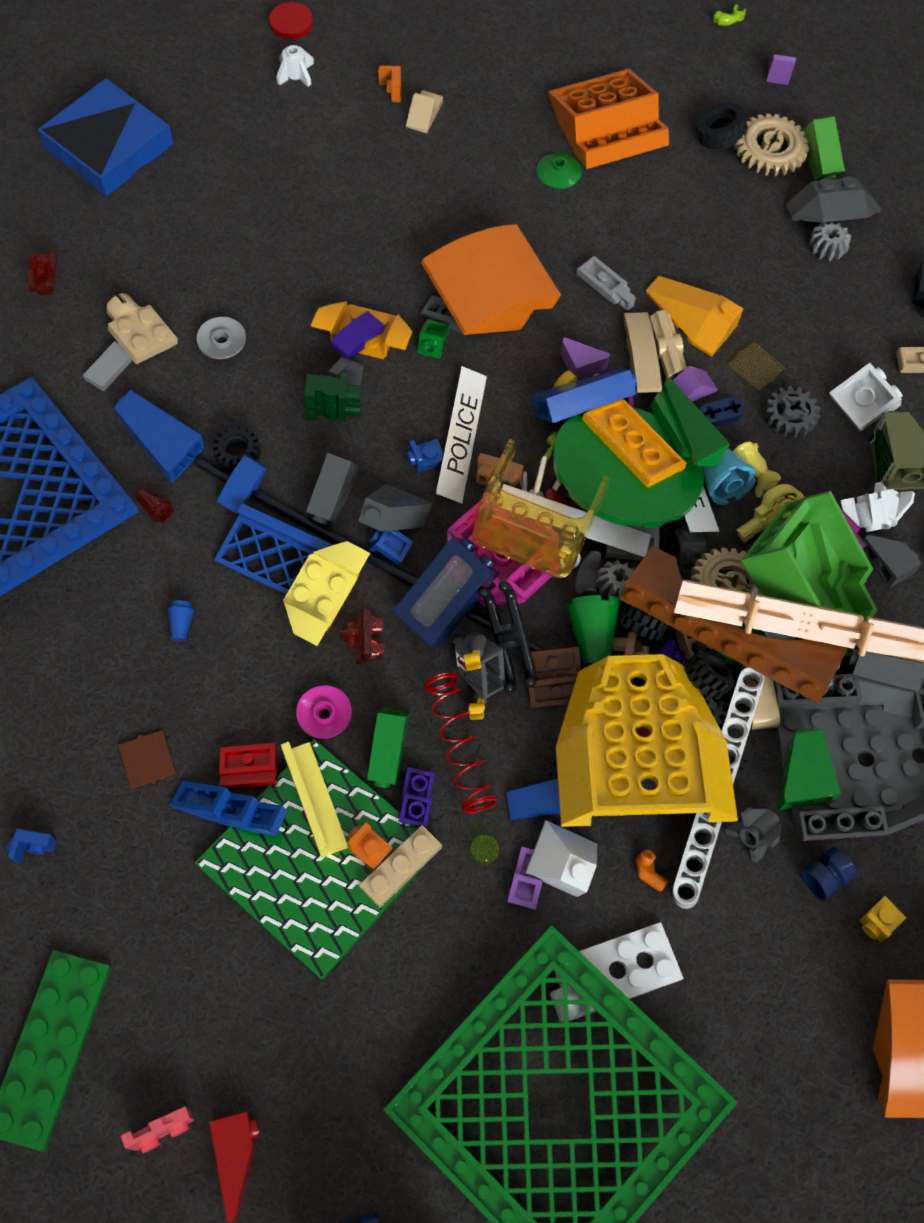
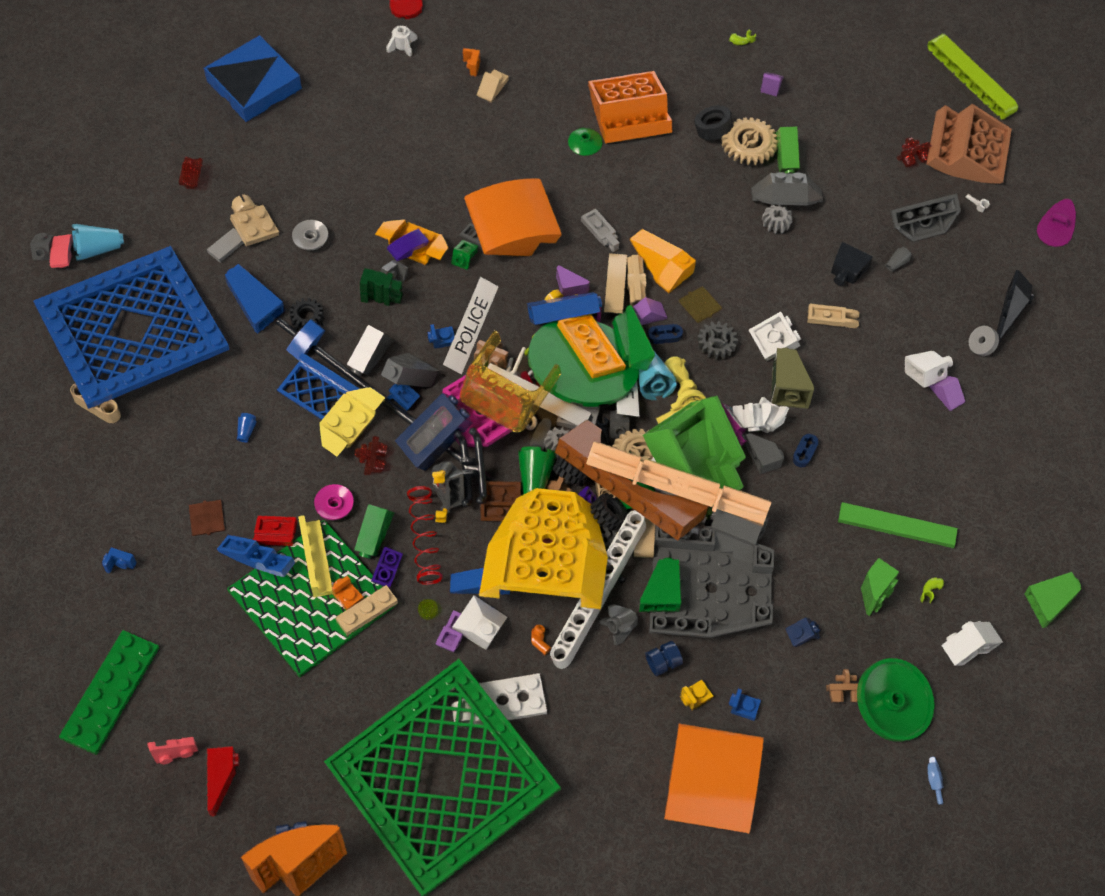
camera: 10 degrees right, 5 degrees down
(155, 505) = (242, 347): clear red cone -> none

